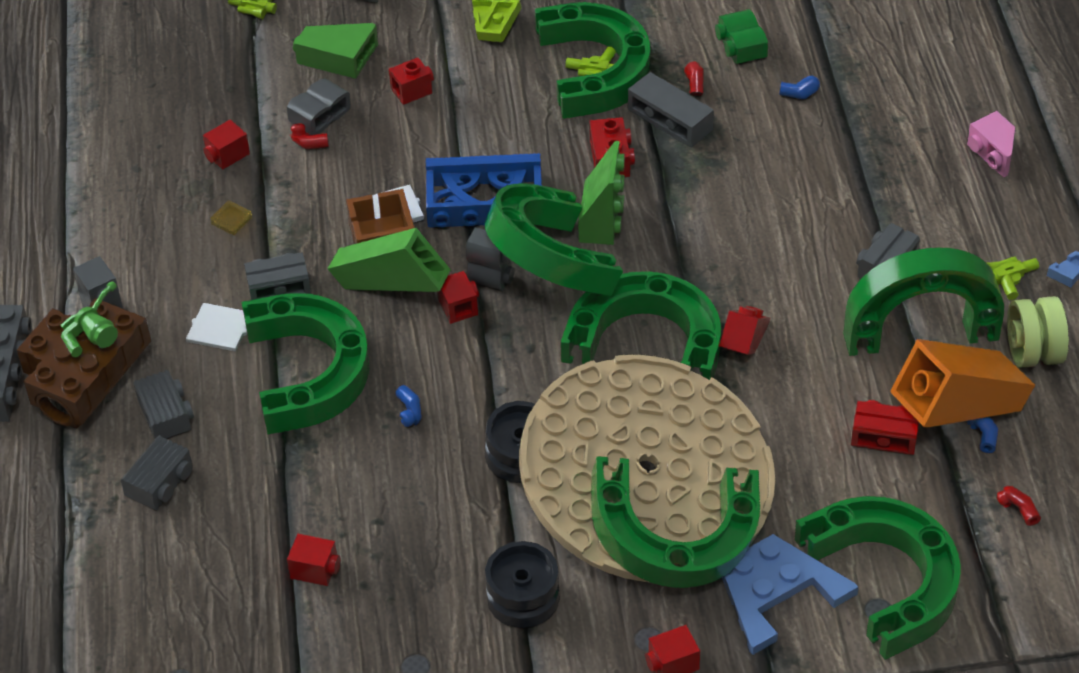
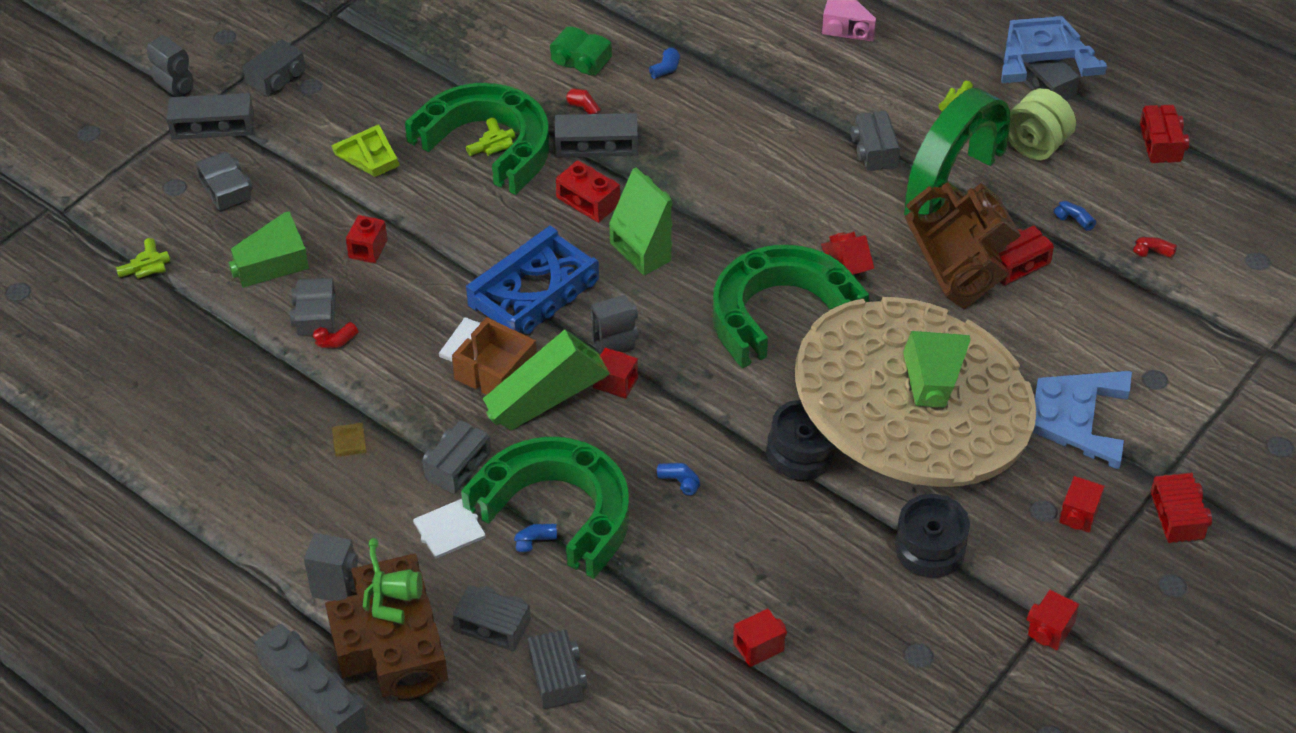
camera: 45 degrees left, 0 degrees up
(226, 144) = (275, 385): red brick -> none
(264, 370) = (534, 532): none -> blue arm
(513, 232) = (613, 274): green piece -> none
(651, 555) = (985, 444): green piece -> none
(675, 457) = (934, 365): none -> bright green slope
(835, 378) = (963, 239): none -> reddish brown piece
(908, 530) = (1142, 314): green piece -> none
(959, 383) = (1041, 190): orange slope -> none

